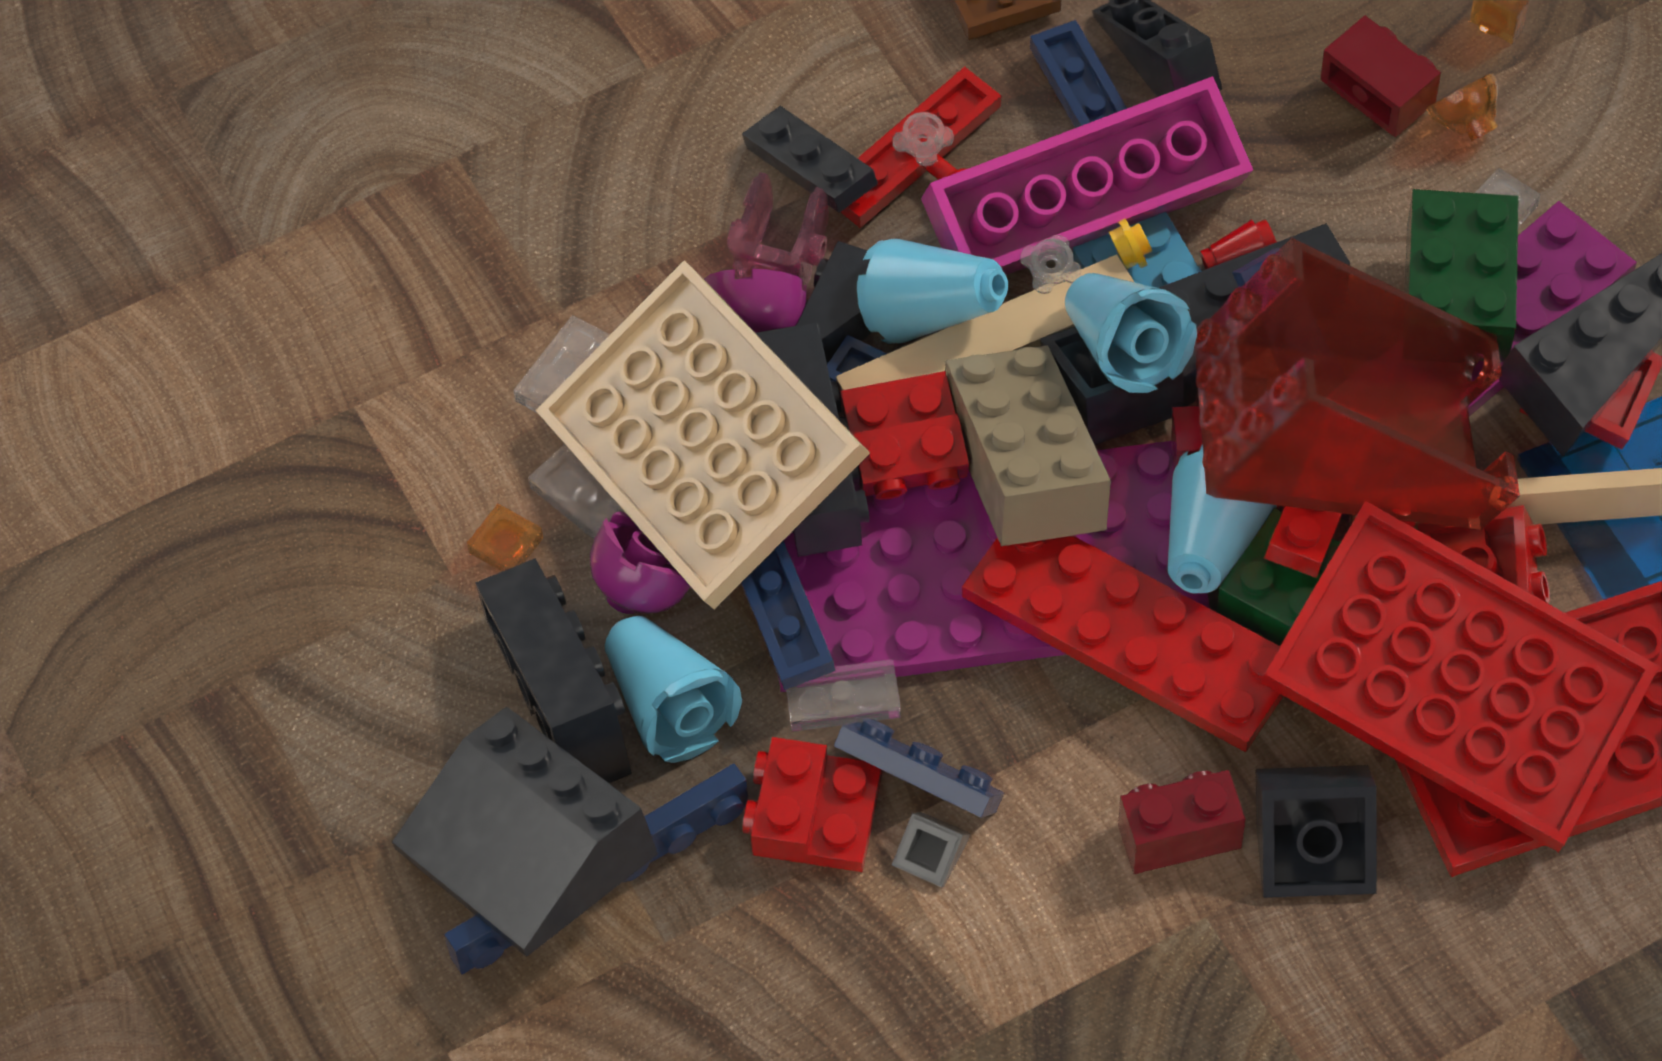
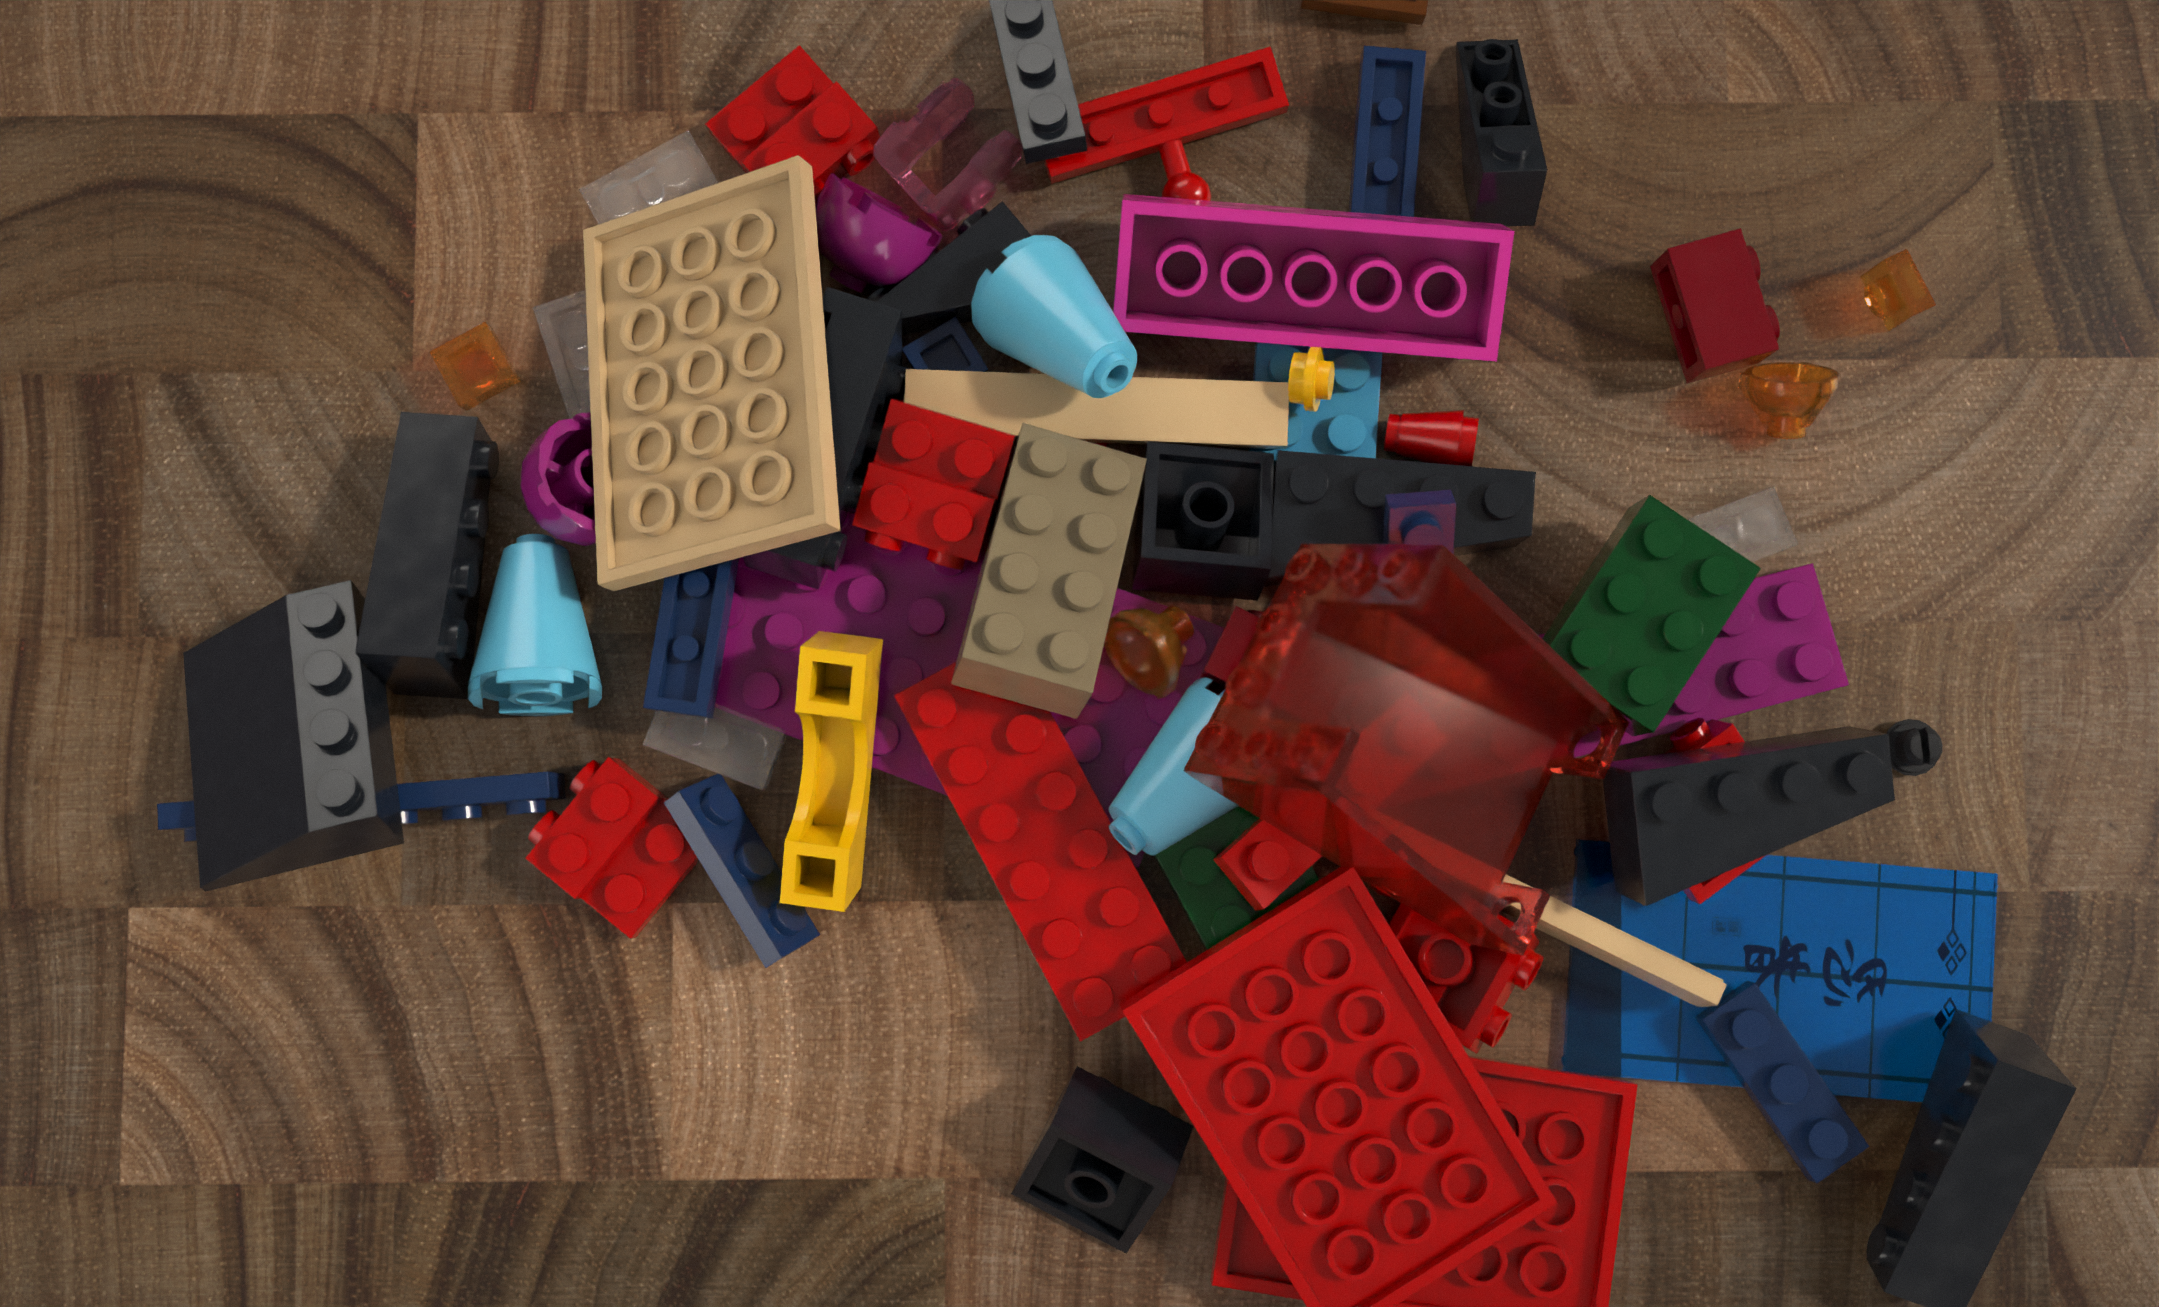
camera: 25 degrees right, 25 degrees up
(639, 265) = (795, 114): none -> red plate
(923, 126) = (1169, 100): clear plate -> none
(930, 848) = (712, 953): dark grey slope -> none
(947, 650) = (838, 724): none -> yellow arch
(1053, 249) = (1220, 347): clear plate -> none
(1131, 330) = (1227, 506): medium azure cone -> none
(1131, 472) = (1149, 647): none -> clear orange piece
(1181, 820) = (968, 1078): dark red brick -> none

